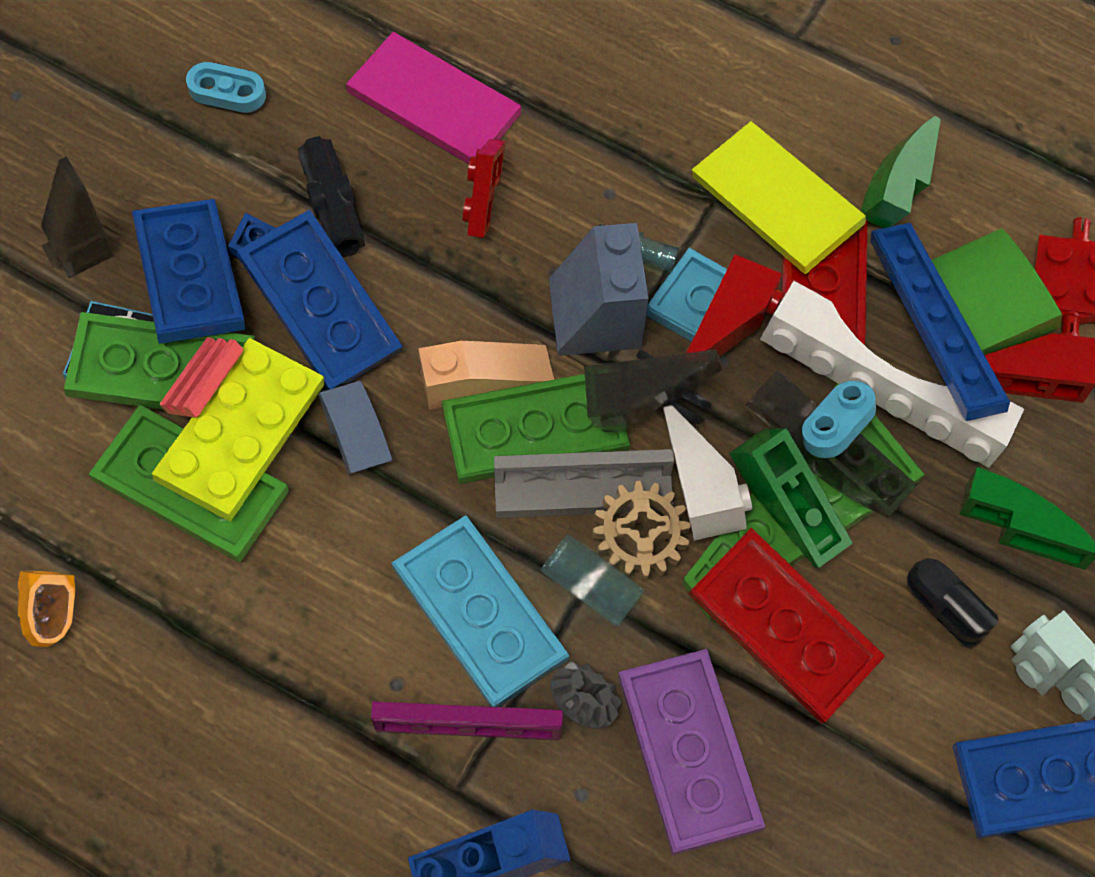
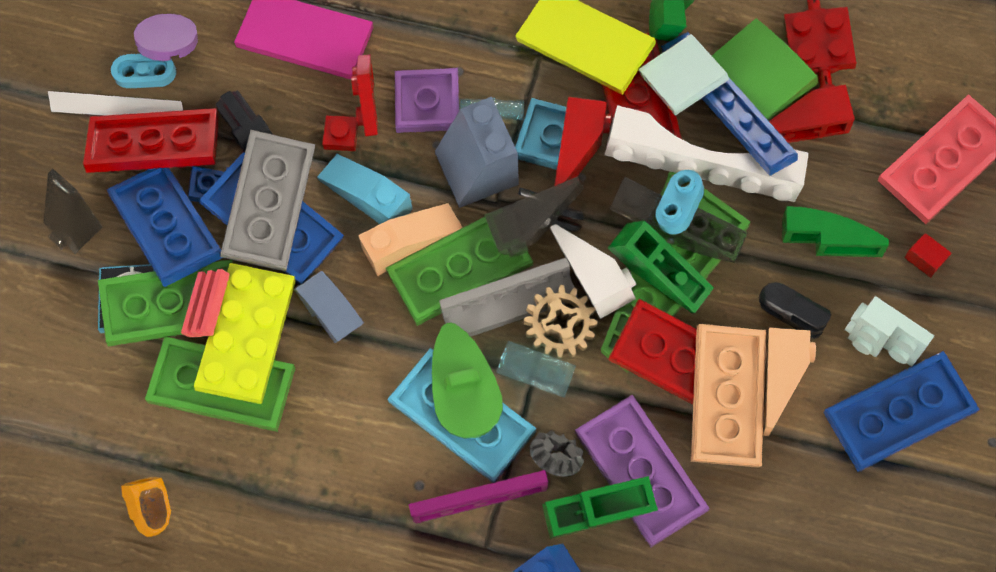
camera: 10 degrees left, 5 degrees up
(180, 121) = (108, 105): none -> white sticker
(206, 169) = (151, 140): none -> red plate
(265, 54) = (165, 36): none -> medium lavender tile
(320, 276) = (268, 200): none -> light grey tile
(438, 225) = (340, 133): none -> red plate
(448, 299) = (366, 189): none -> medium azure slope
(493, 574) = (463, 385): none -> bright green shield
(556, 213) = (426, 99): none -> medium lavender tile
(619, 780) = (599, 507): none -> green slope
(832, 687) = (728, 396): none -> light nougat tile
(890, 269) = (683, 74): none -> light aqua tile
(918, 670) = (785, 363): none -> light nougat slope

